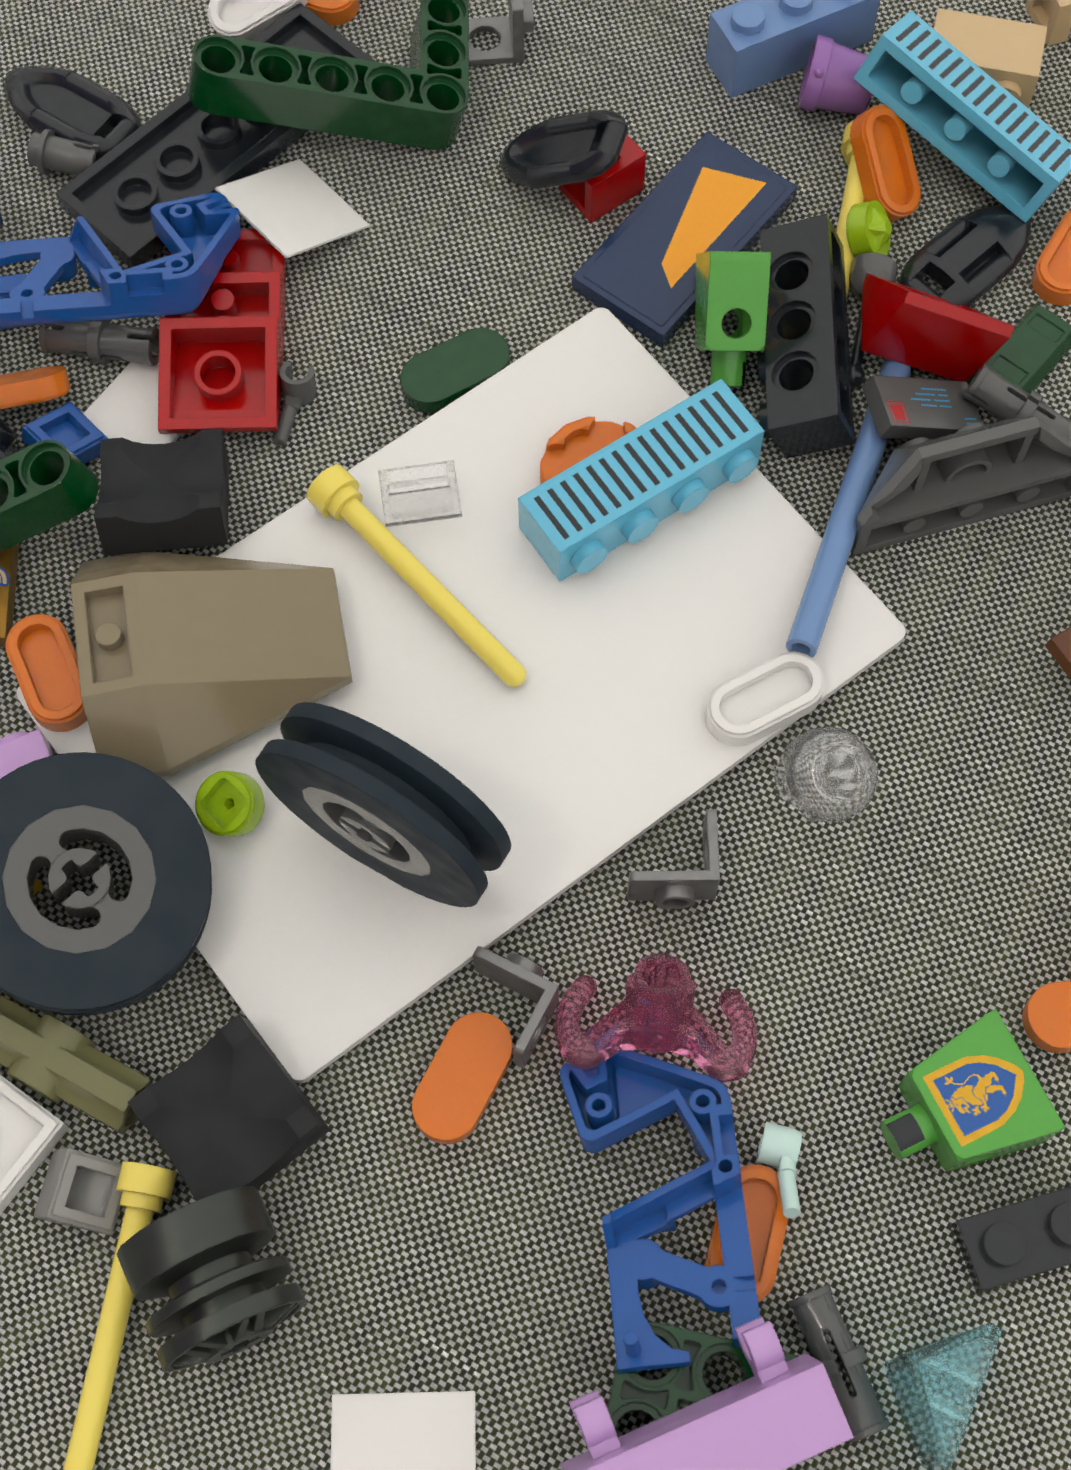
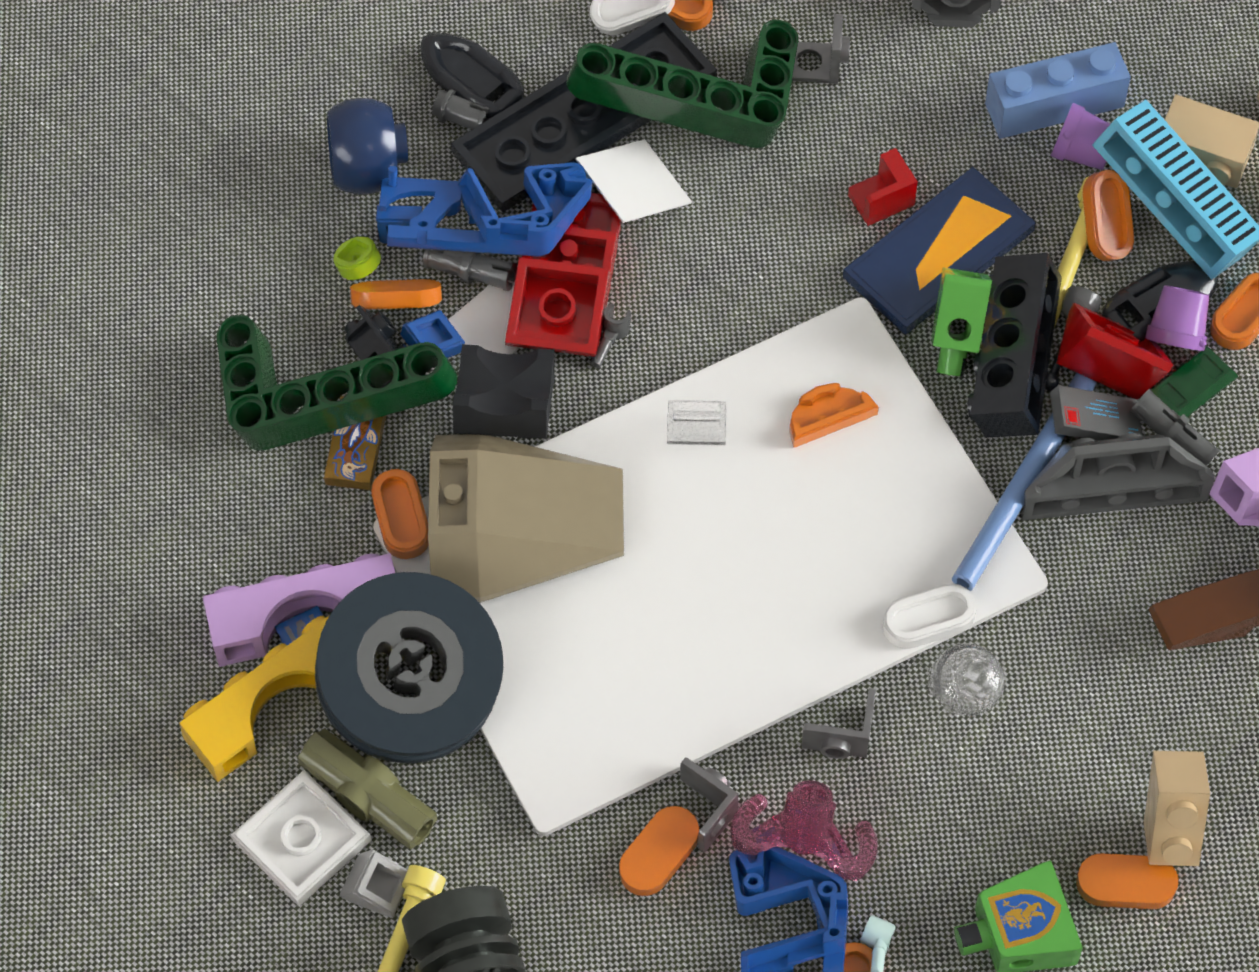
camera: 10 degrees right, 5 degrees down
(229, 803) = (521, 629): lime tile -> none
(229, 1113) = (491, 842): black brick -> none
(338, 496) = (634, 414): light yellow piece -> none
(384, 803) = (634, 643): black wheel -> none
(453, 369) = (738, 328): dark green tile -> none
(565, 149) = (854, 168): black piece -> none
(640, 480) = (866, 438): medium azure brick -> none
(868, 228) = (1084, 267): lime tile -> none
(1003, 272) = (1180, 318): none -> medium lavender piece

